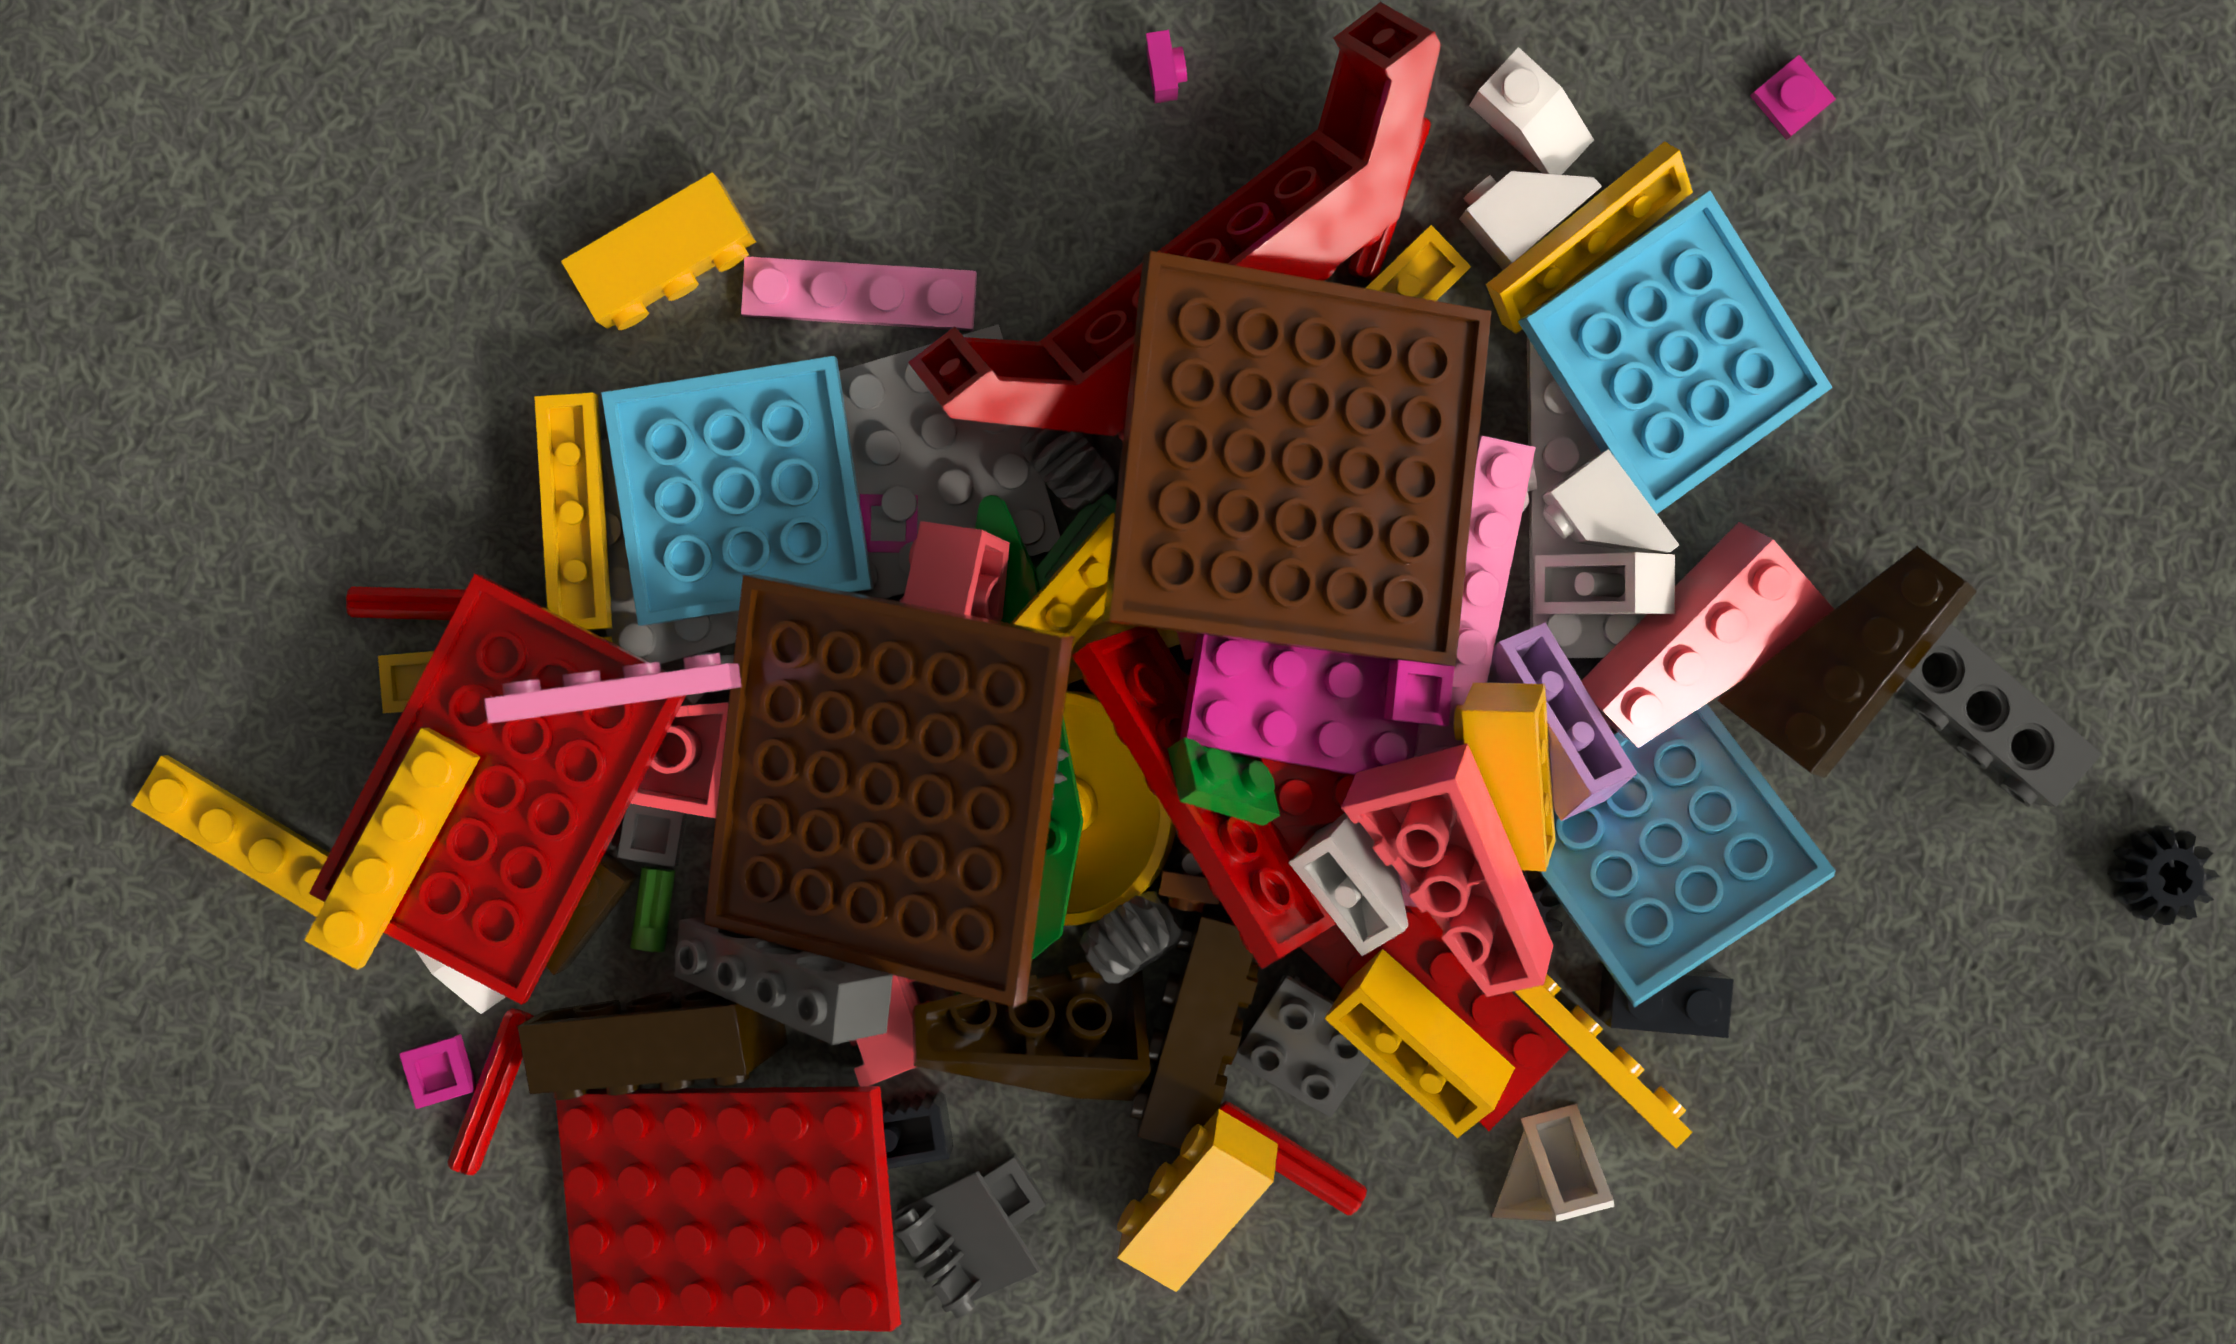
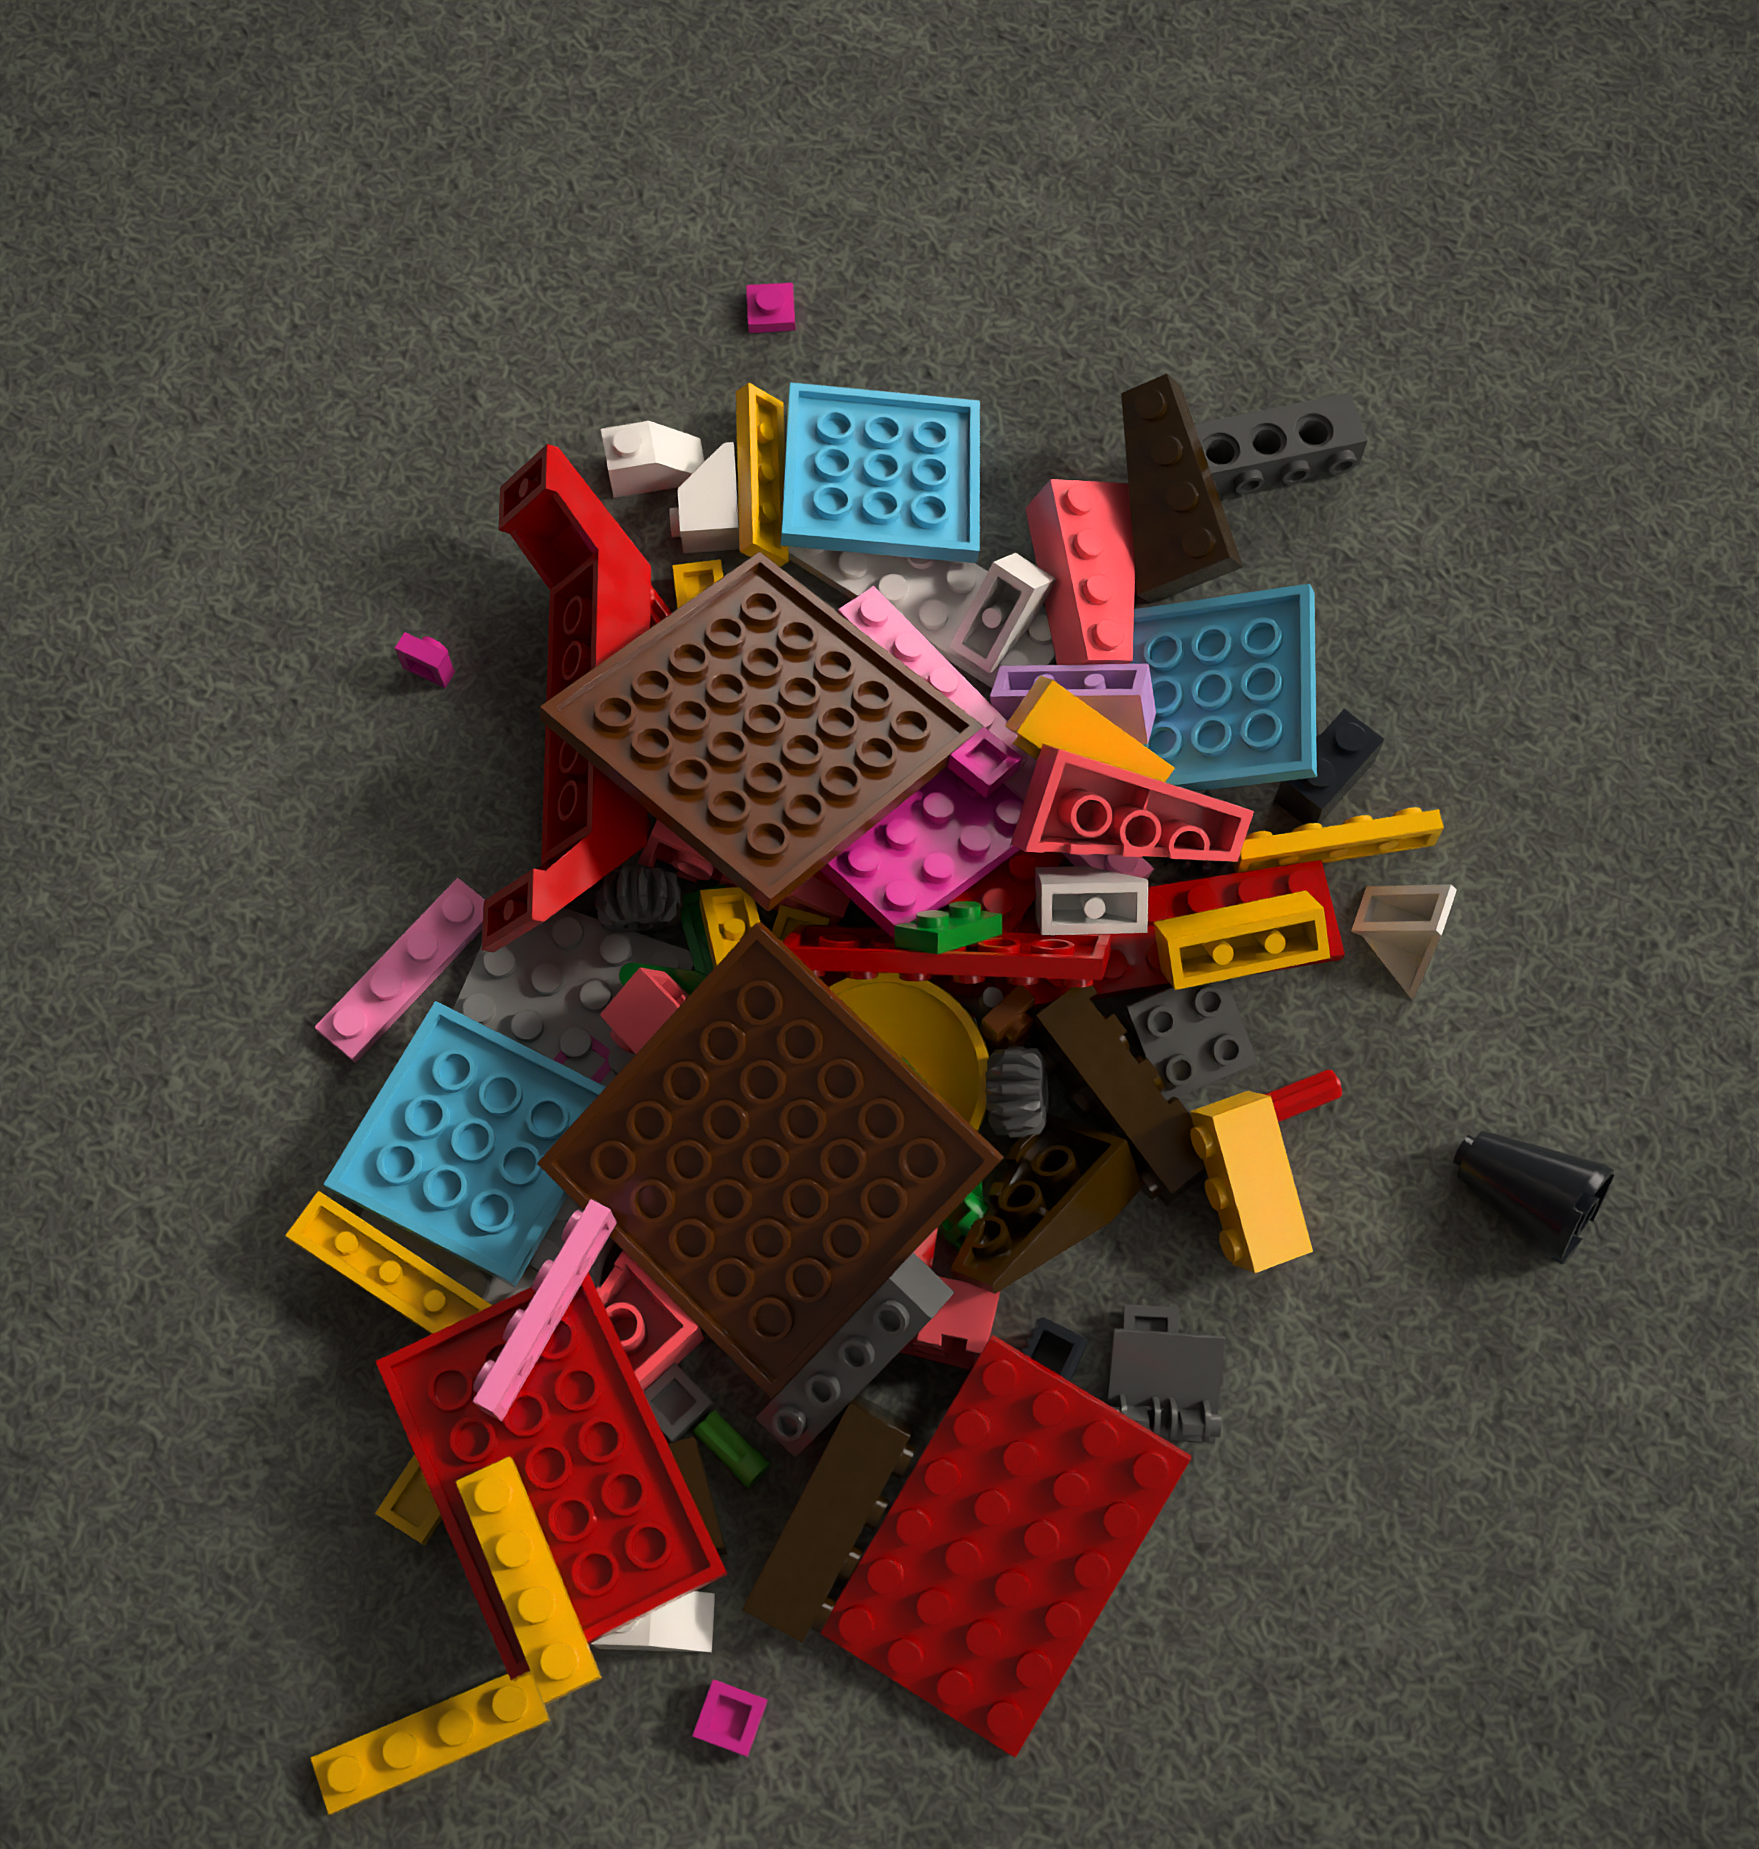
camera: 50 degrees left, 20 degrees down
(403, 602) = (357, 1463): red axle -> none
(489, 1096) = (779, 1689): red axle -> none
(660, 253) = (262, 1082): yellow brick -> none
(1606, 509) = (949, 575): white slope -> none
(2148, 889) = (1464, 414): black gear -> none

